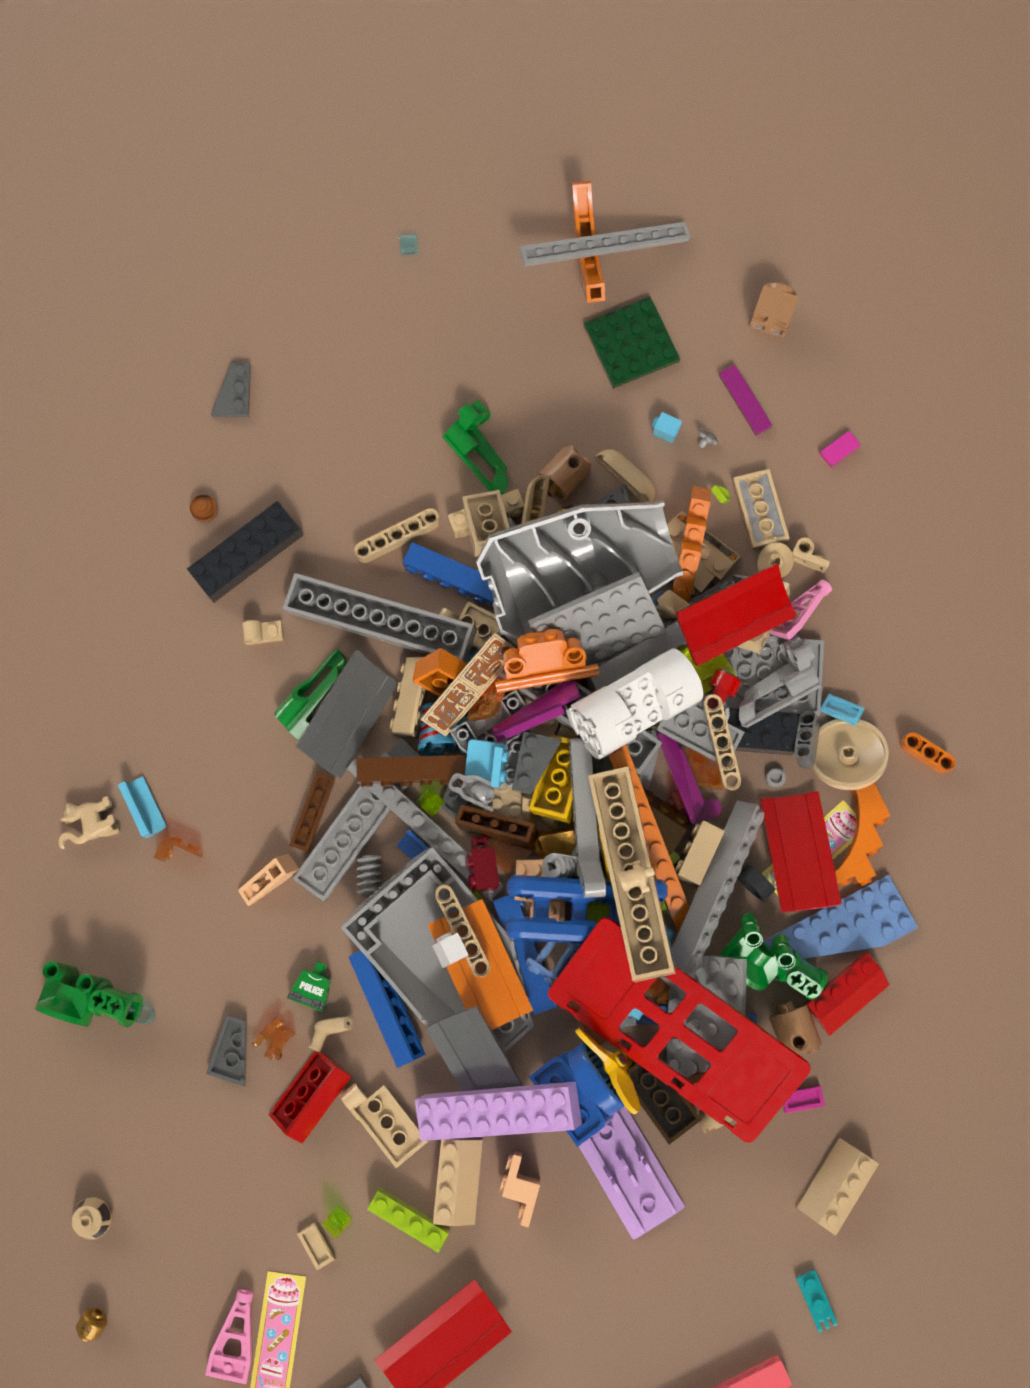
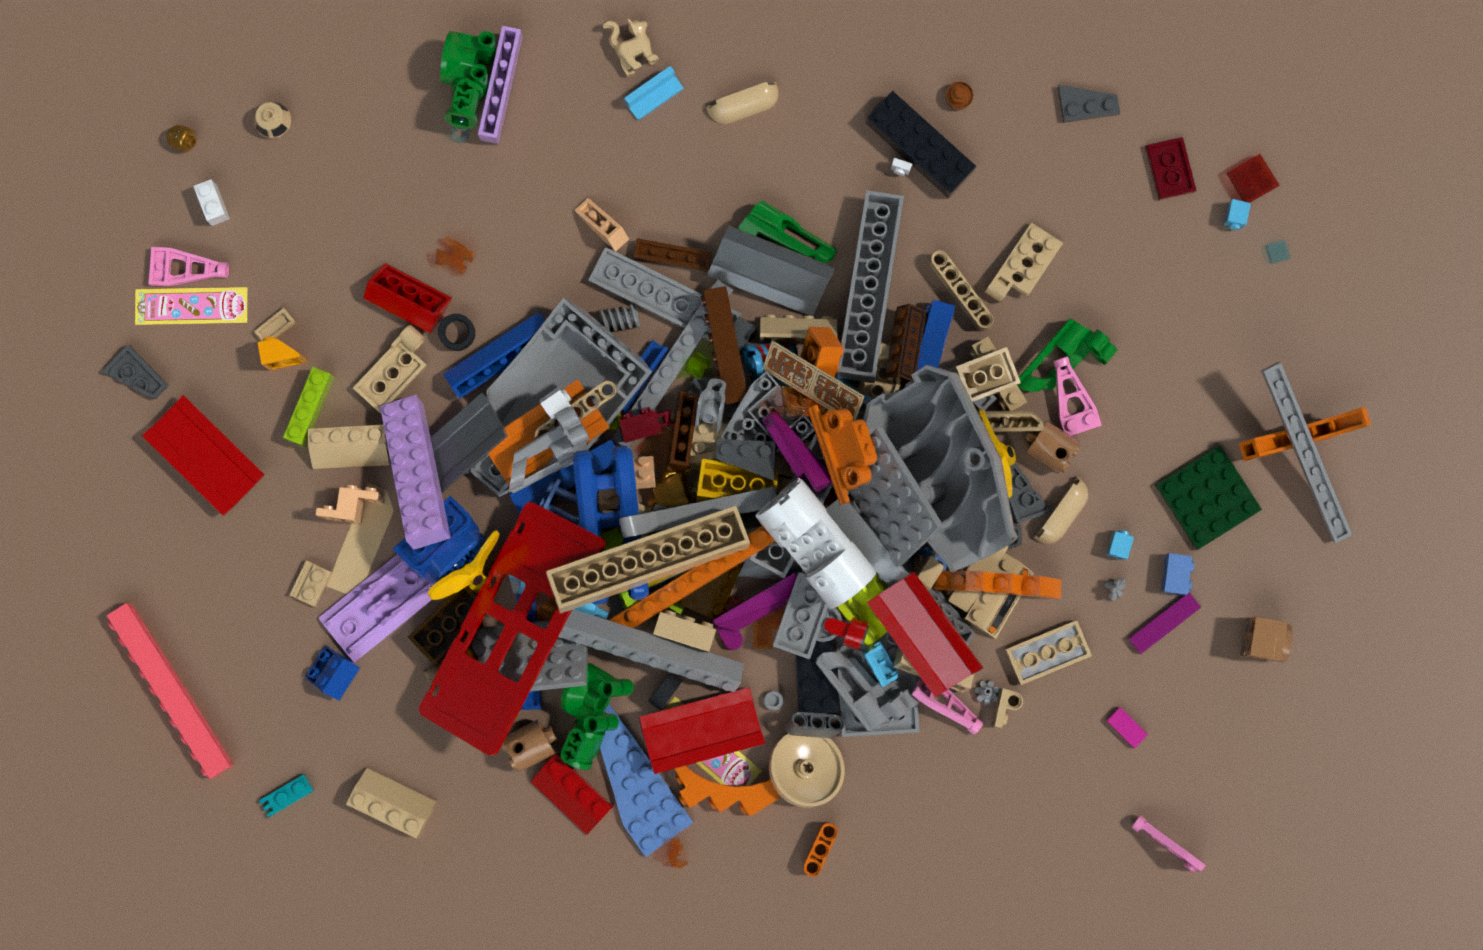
camera: 75 degrees right, 5 degrees up
(102, 964) = (500, 85): none -> lavender brick
(166, 849) = (616, 122): clear orange bracket -> none
(168, 1299) = (211, 202): none -> white brick
(171, 718) = (744, 103): none -> tan brick
(230, 1052) = (436, 217): dark grey wing -> none
(258, 632) = (842, 176): tan plate -> none
(264, 574) = (901, 167): none -> white plate
(311, 326) = (1170, 168): none -> dark red tile
(312, 988) = (505, 283): green torso -> none
(327, 1027) = (472, 305): tan arm -> none
(336, 254) = (1253, 179): none -> clear red plate
(336, 1222) = (298, 341): clear neon green bracket -> none
(340, 1043) = (442, 332): none -> black tyre
(347, 1246) = (278, 355): none -> light orange slope
(367, 273) = (1237, 214): none -> medium azure brick
(392, 494) = (1013, 265): none -> tan hinge
(442, 594) = (905, 343): none -> reddish brown brick
(487, 761) = (741, 411): medium azure bracket -> none
(492, 946) = (564, 442): none -> light grey panel
(541, 443) = (1080, 421): none -> bright pink plate
(560, 866) = (649, 495): light grey piece -> none
(562, 1182) = (361, 545): none -> tan sticker
(596, 1243) = (311, 583): none -> tan plate
(636, 877) = (642, 561): tan piece -> none
(694, 1232) = (332, 672): none -> blue slope
(701, 380) = (1177, 574): none -> medium blue brick
(721, 494) = (1057, 609): lime tile -> none
(728, 749) = (804, 636): tan beam -> none
(755, 666) = (880, 663): none -> medium azure hinge
(774, 552) = (995, 666): tan dish -> none
(794, 574) = (982, 692): none -> light grey plant
(805, 1099) = (467, 762): dark pink tile -> none
(842, 709) = (851, 758): medium azure tile -> none
(914, 896) = (676, 849): none -> clear orange bracket
(973, 410) = (1191, 862): none -> bright pink plate

